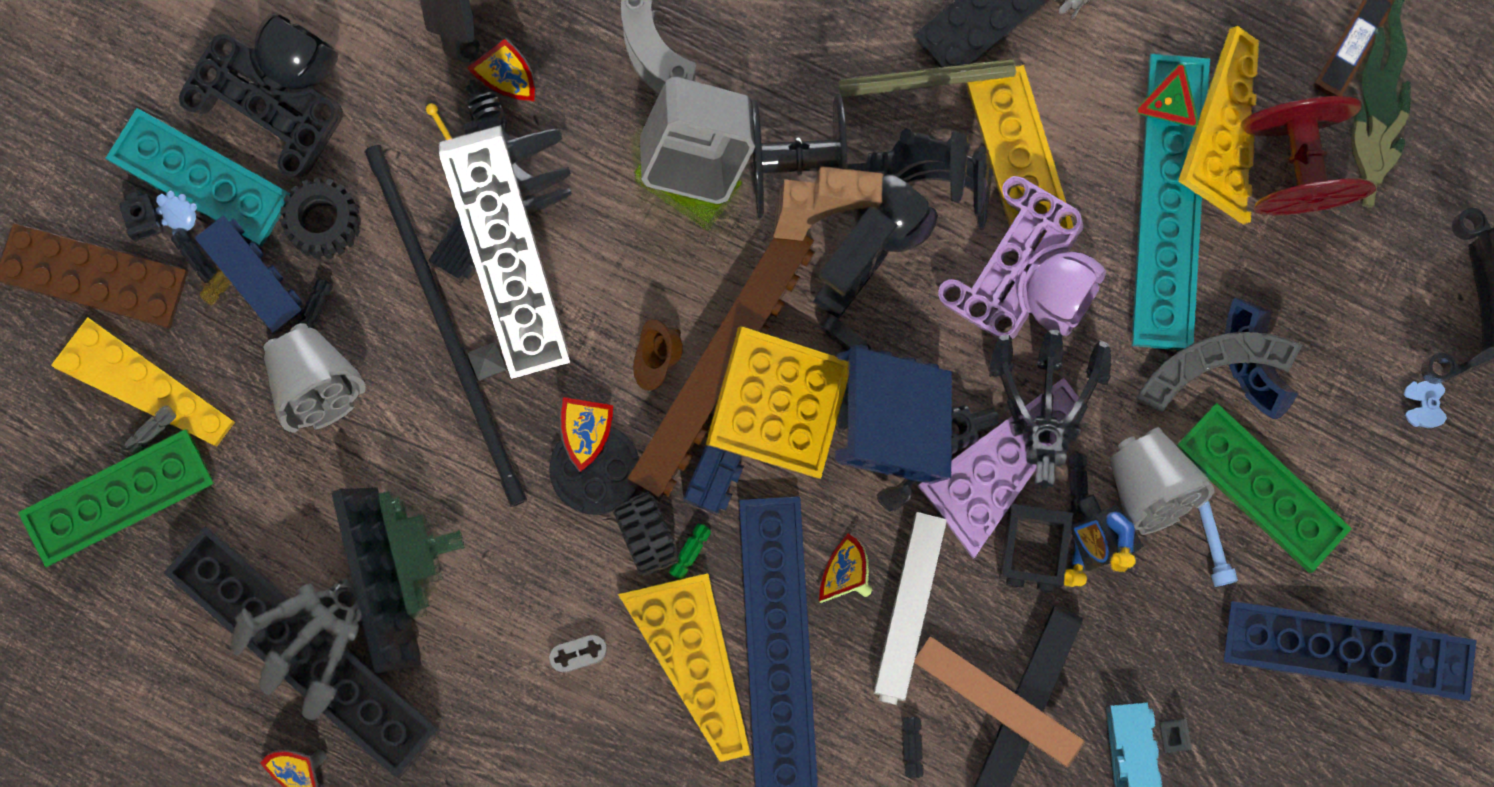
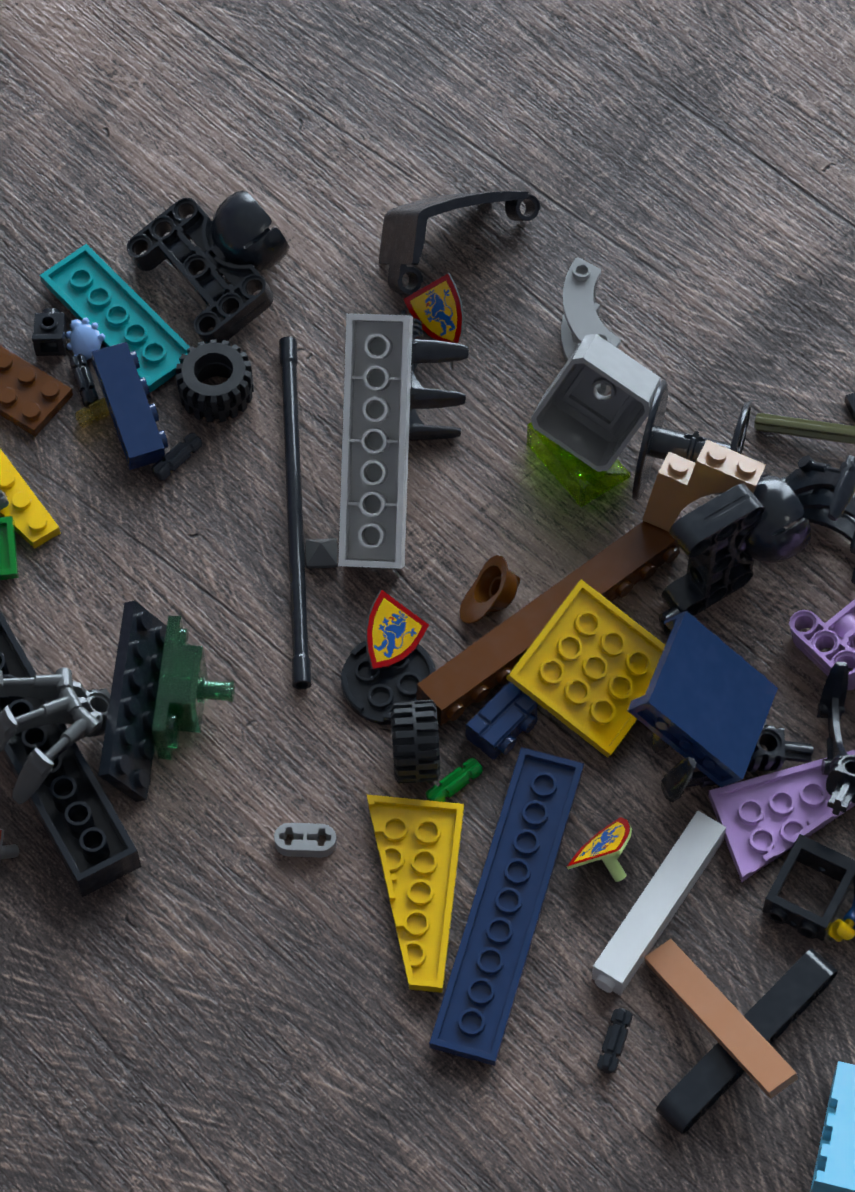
camera: 25 degrees right, 20 degrees down
(309, 379) = (147, 510): light grey cone -> none
(454, 254) = (324, 449): black brick -> none

